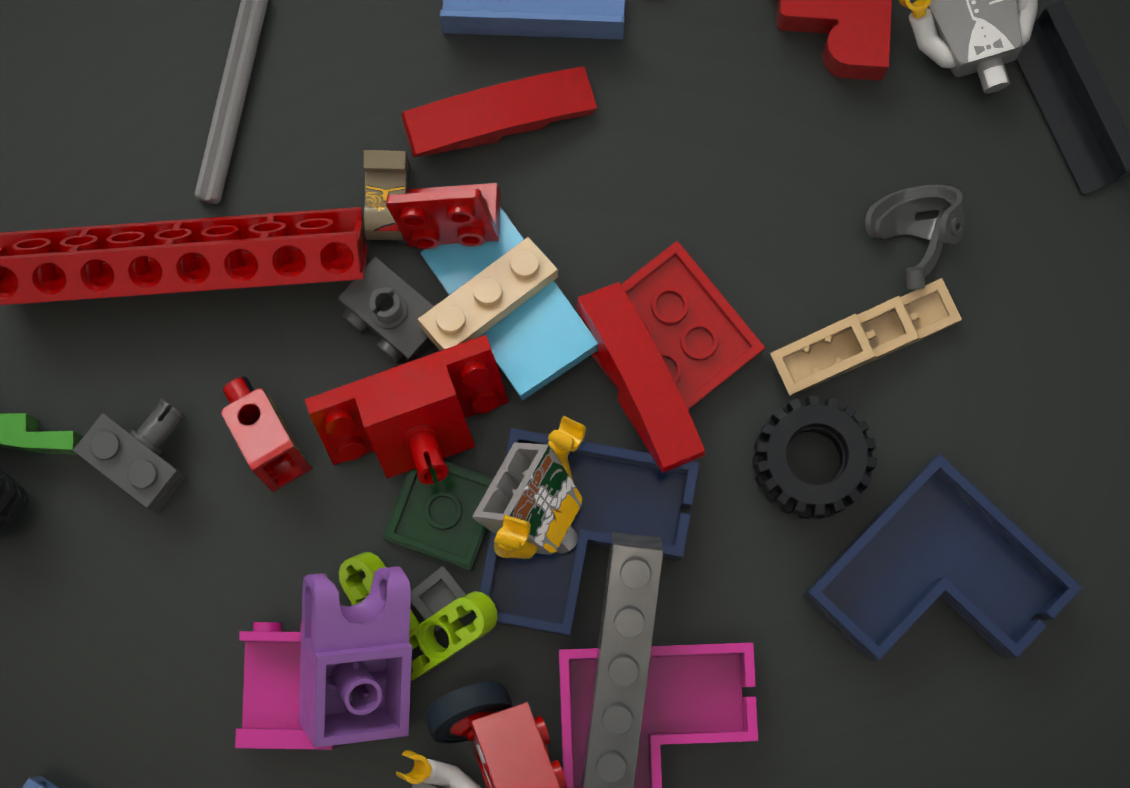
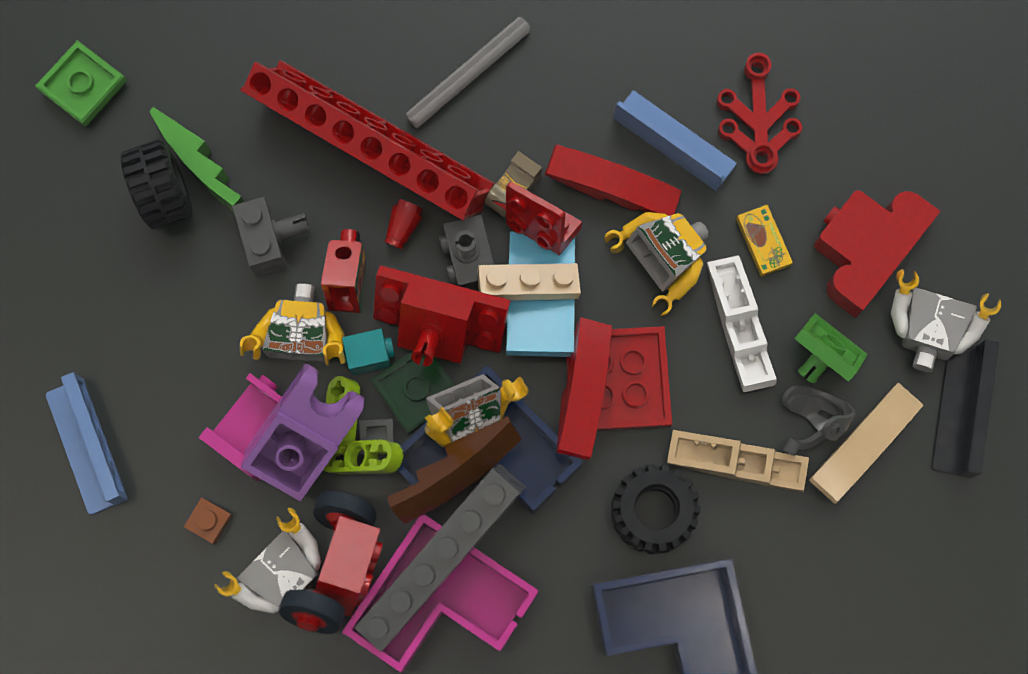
camera: 35 degrees right, 5 degrees down
(258, 541) = (297, 331): none -> torso
(287, 329) = (402, 223): none -> red cone
(358, 508) = (368, 351): none -> teal brick
(571, 559) = (466, 462): none -> reddish brown slope
(619, 149) = (666, 249): none -> torso
(718, 60) = (764, 240): none -> yellow tile
(759, 175) = (741, 323): none -> white slope
(880, 138) = (828, 349): none -> bright green tile
(993, 217) = (866, 443): none -> tan slope

